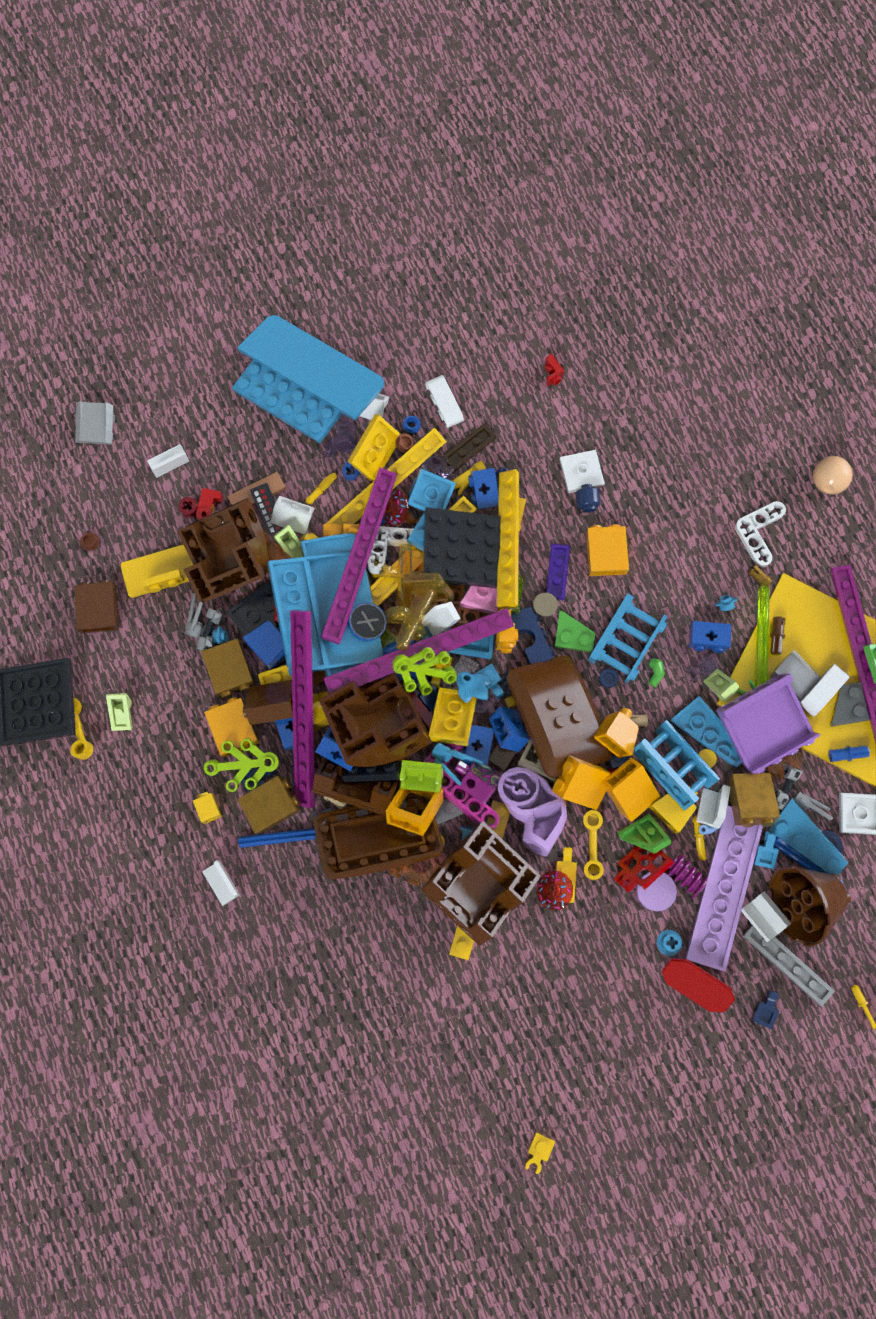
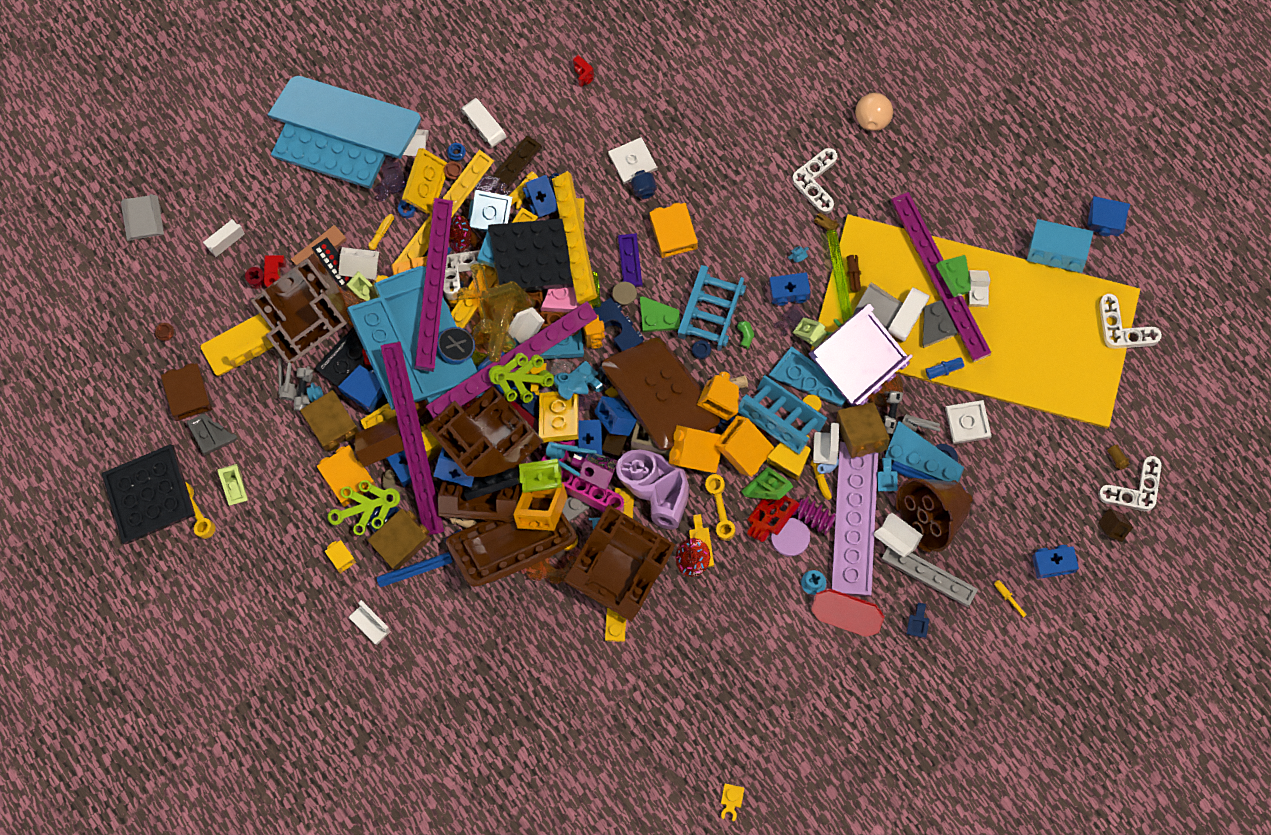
camera: 10 degrees left, 5 degrees down
(109, 655) = (209, 435): none -> dark grey wing
(272, 743) = (389, 480): none -> dark tan arm

